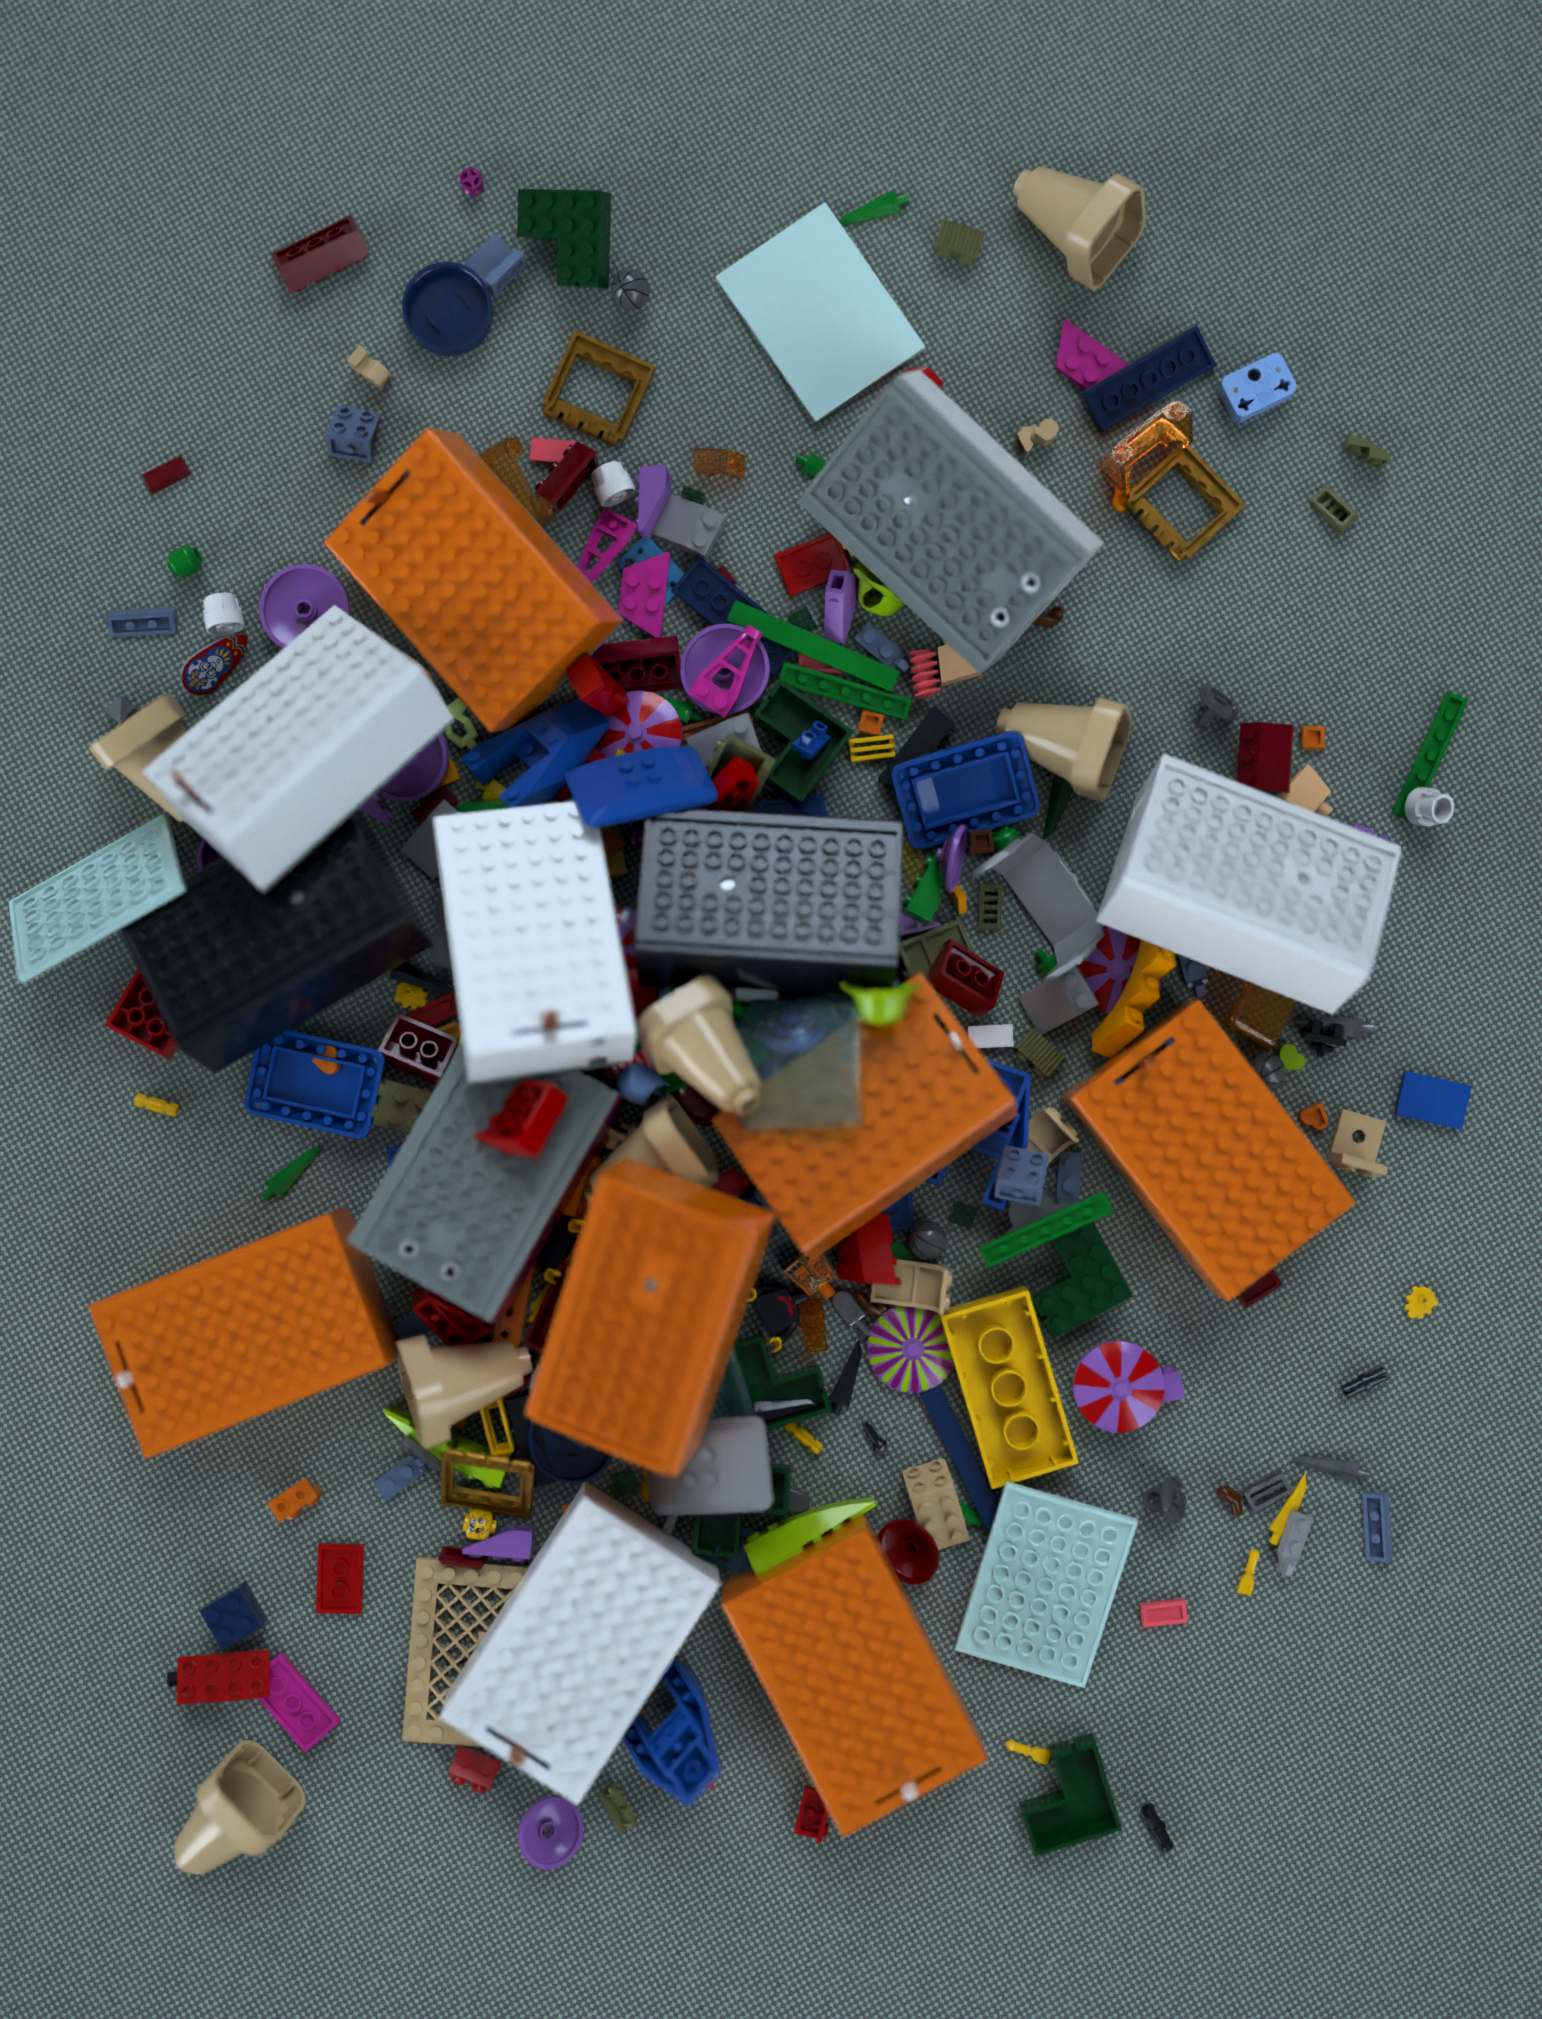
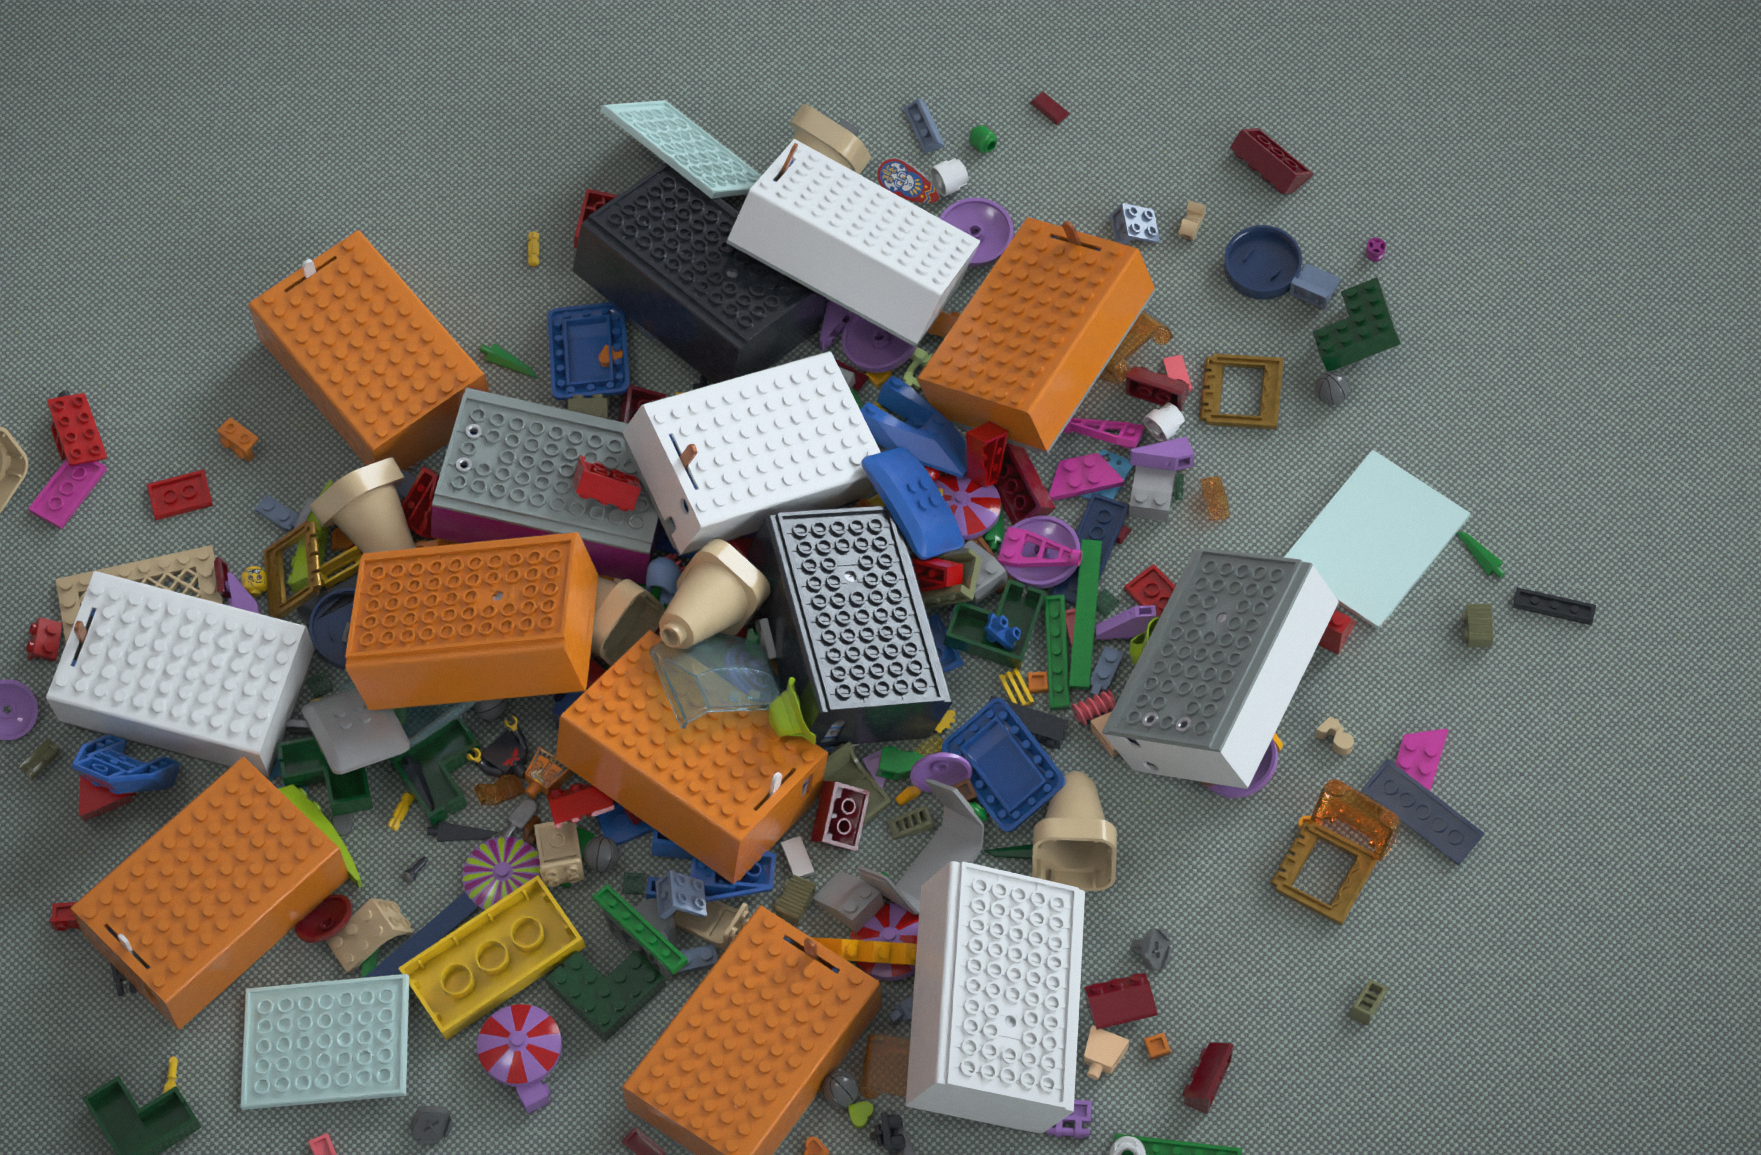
camera: 75 degrees right, 25 degrees down
(233, 1615) = (129, 423): dark blue brick -> none
(959, 157) = (1554, 606): none -> black tile
(1051, 618) = (1181, 797): reddish brown arm -> none
(1084, 219) = (1530, 711): tan cone -> none
(1260, 394) = (1447, 907): light blue axle -> none
(1369, 696) = (1208, 1076): none -> dark red slope
(1372, 453) = (1429, 1014): olive slope -> none

